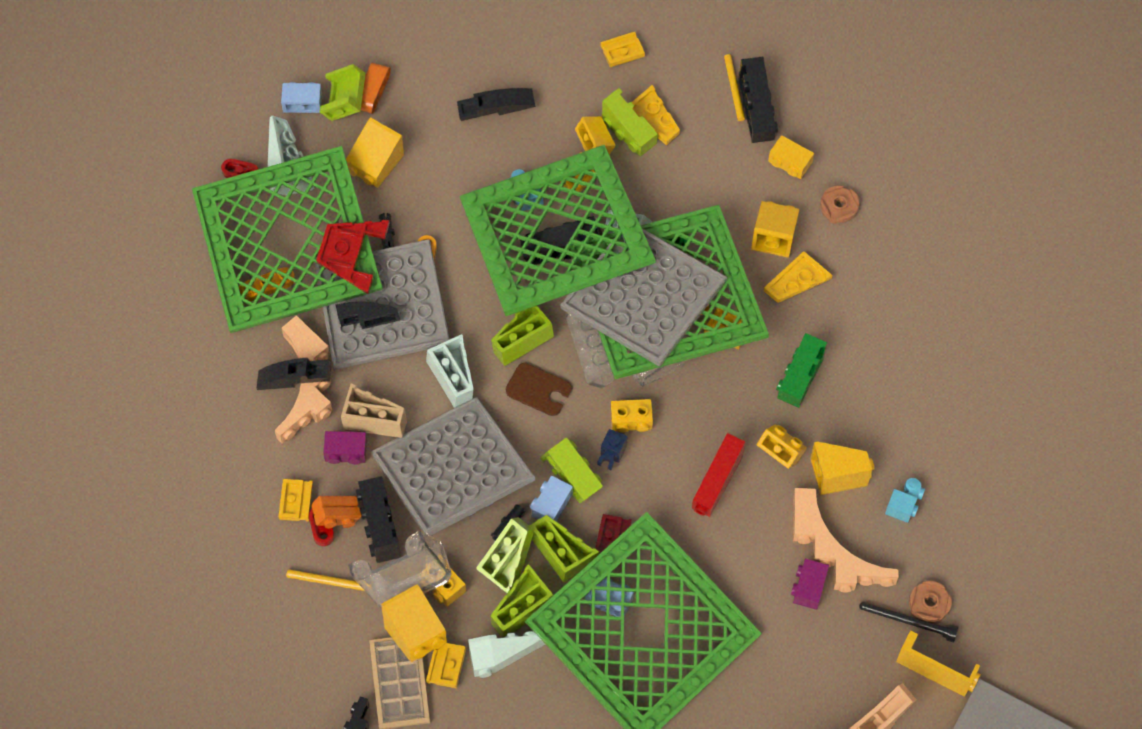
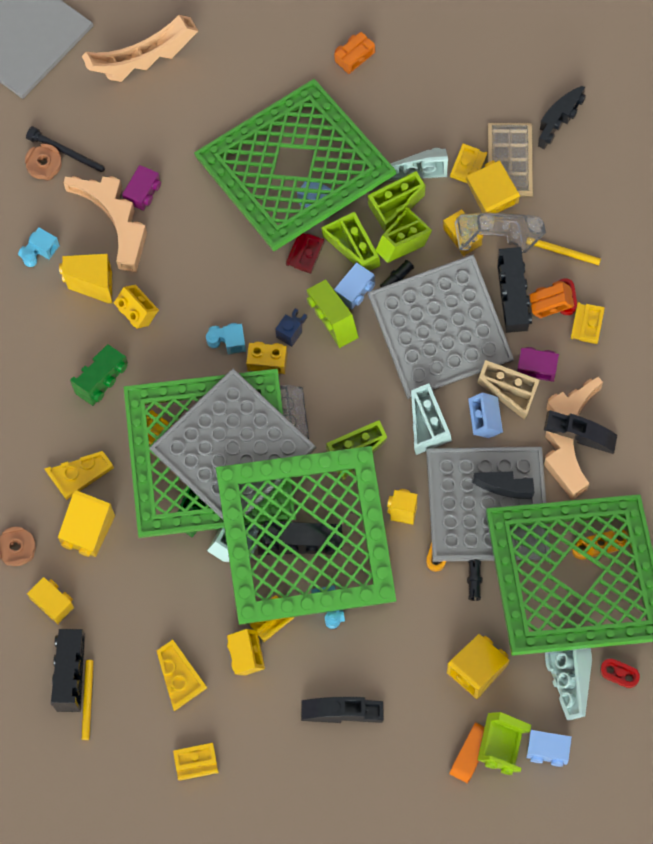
camera: 165 degrees left, 5 degrees up
(342, 248) = (522, 545): red wing -> none
(394, 382) = (485, 415): none -> light blue brick
(465, 280) = (402, 506): none -> yellow brick
(534, 386) = (353, 404): reddish brown piece -> none
(627, 124) = (208, 662): lime wedge -> none
(673, 433) = (231, 335): none -> medium azure brick
(718, 475) = (199, 288): red slope -> none
(934, 670) = (34, 84): yellow panel -> none

